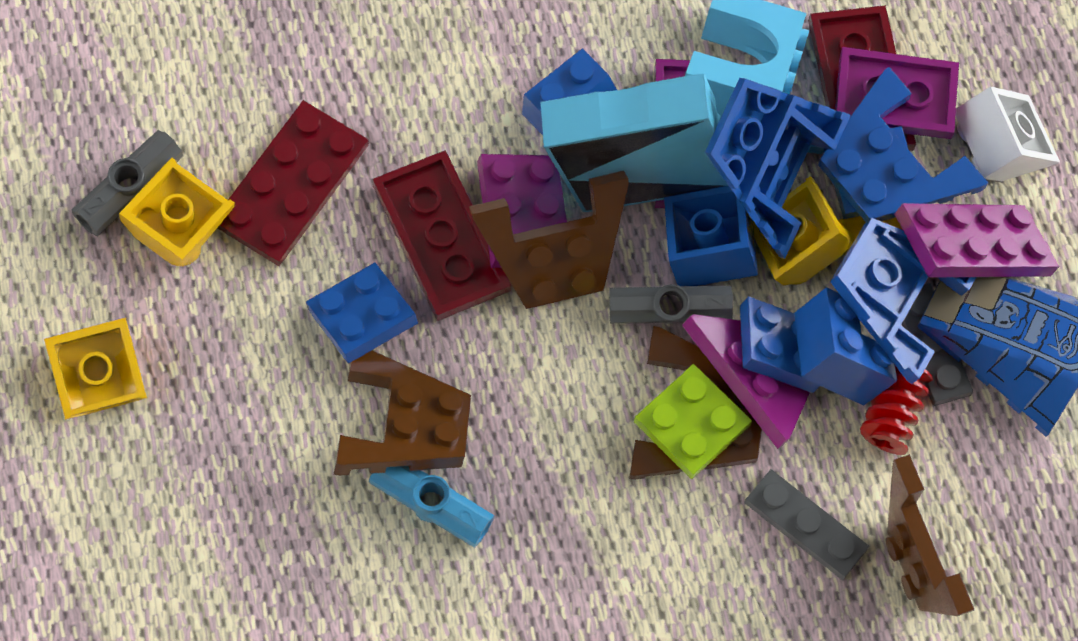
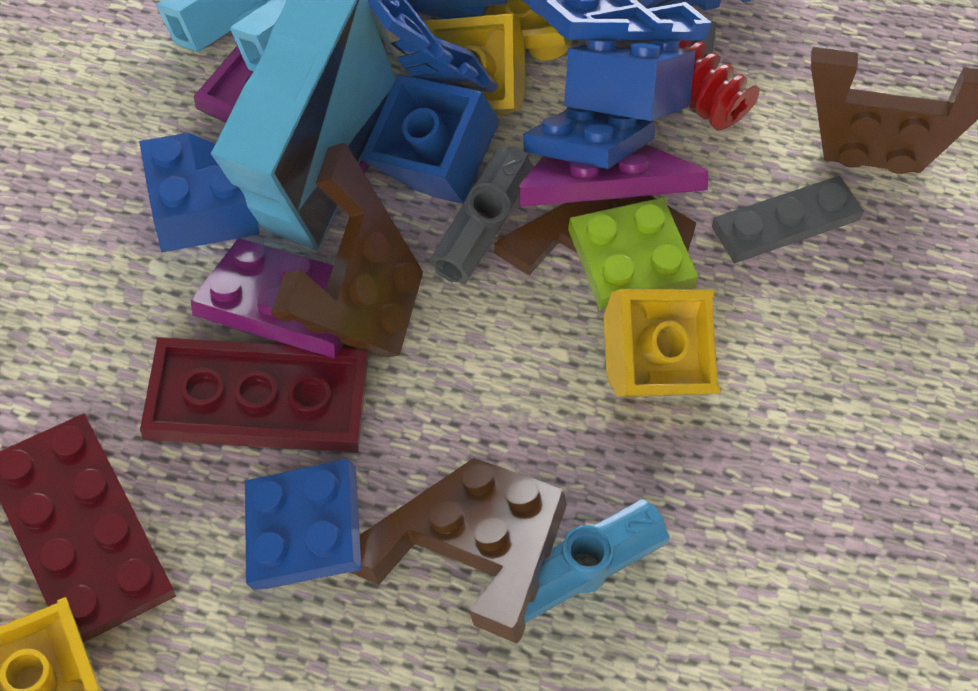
camera: 60 degrees left, 10 degrees down
(624, 475) = (660, 342): none -> yellow slope

